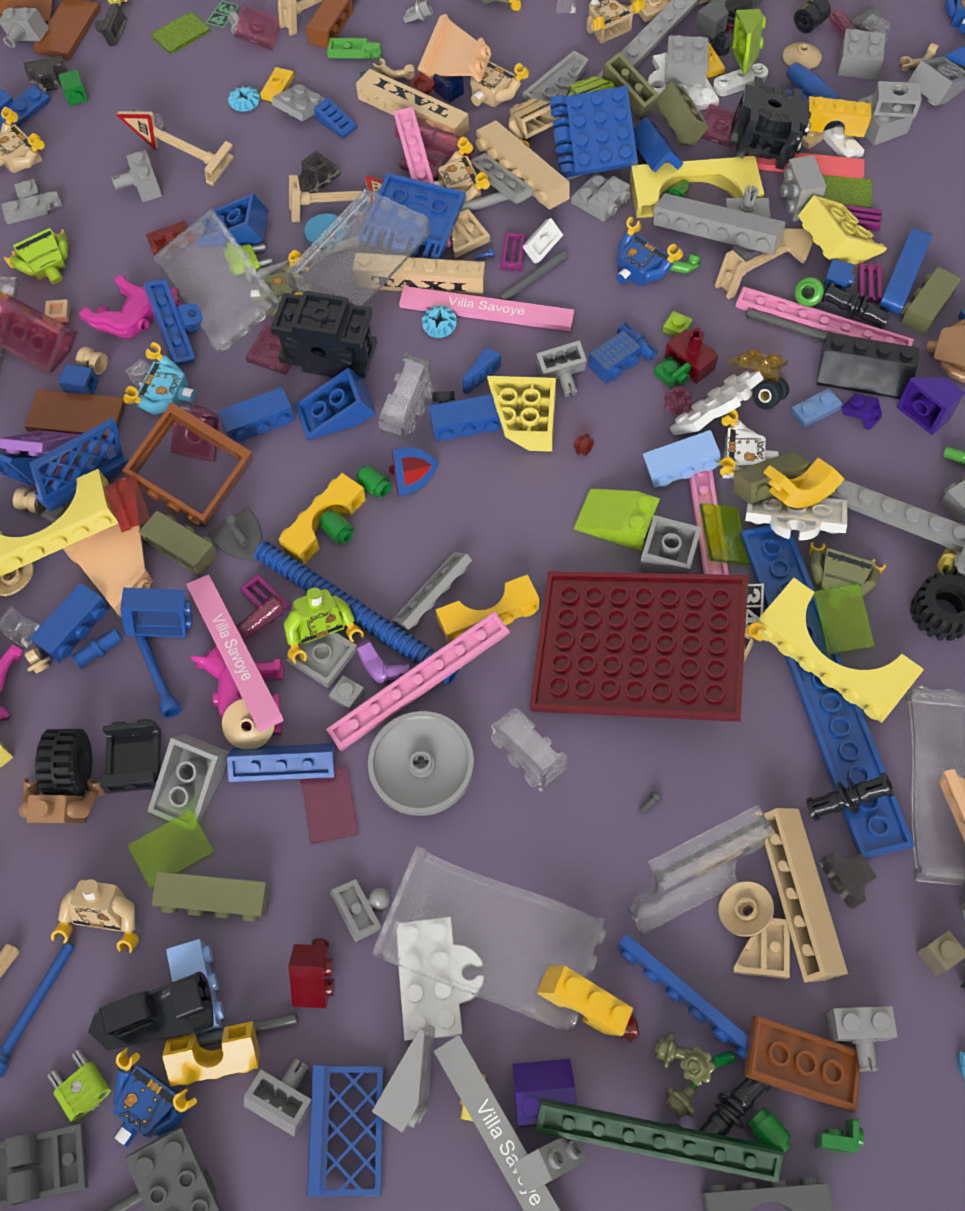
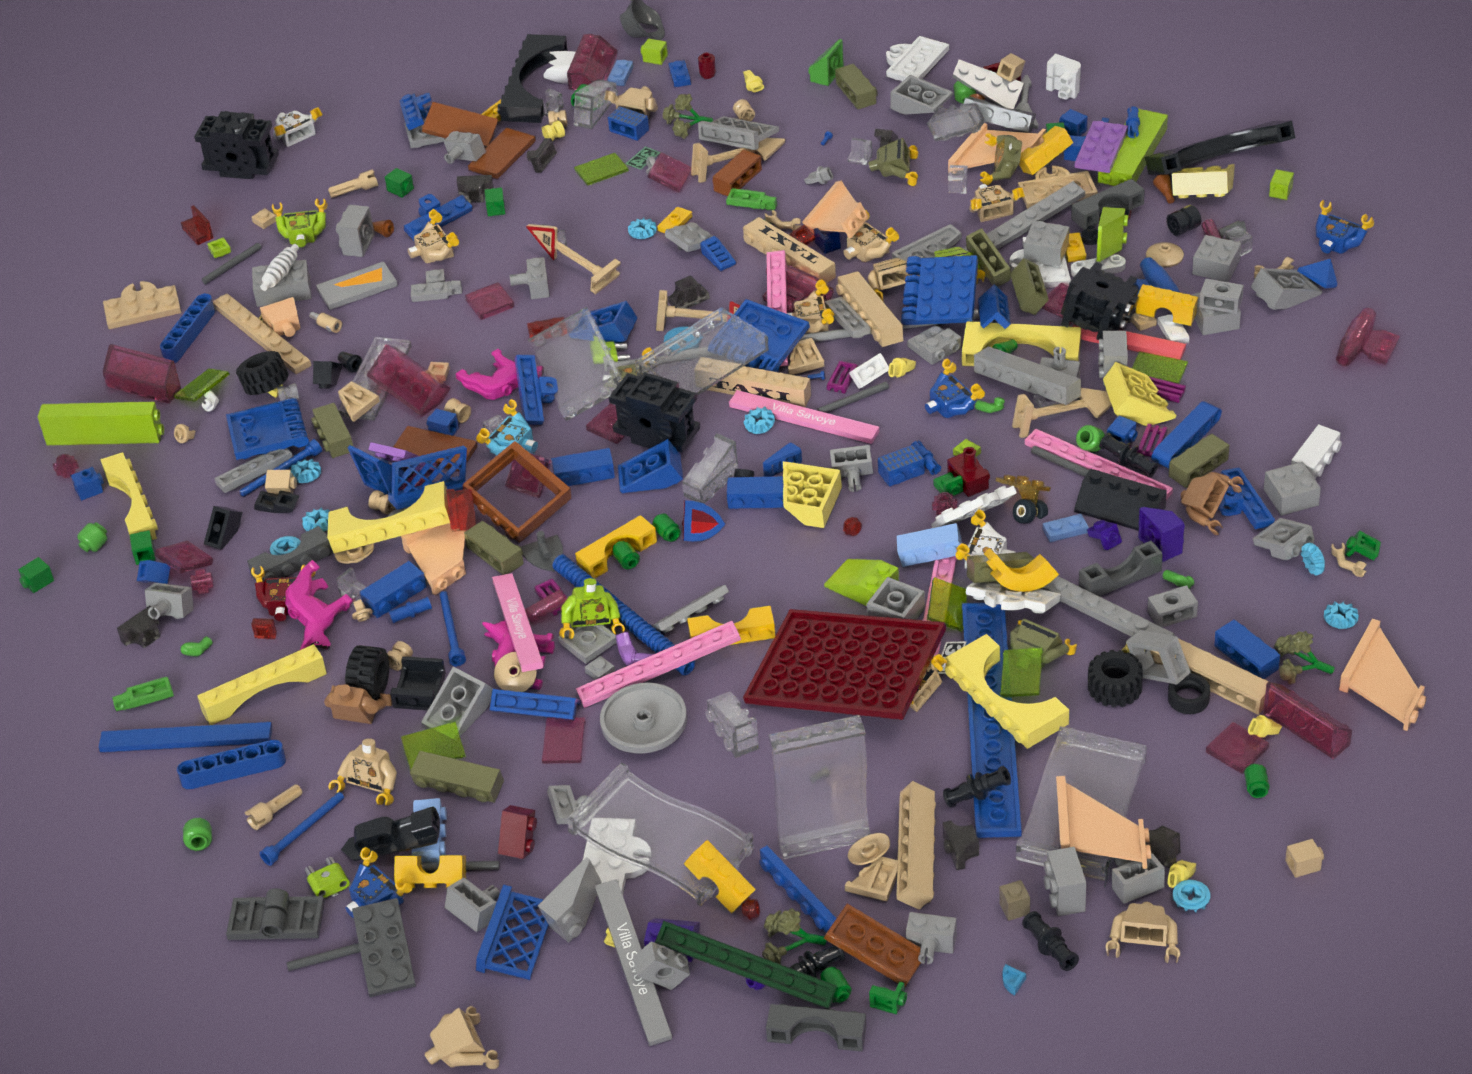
camera: 15 degrees right, 20 degrees down
(41, 255) = (435, 327): lime torso -> none
(96, 211) = (489, 300): none -> clear pink tile
(97, 718) = (398, 651): none -> tan wheel
(139, 614) = (460, 600): blue window -> none
(574, 230) = (900, 366): none -> light yellow piece
(918, 446) = (1141, 563): none -> dark grey arch

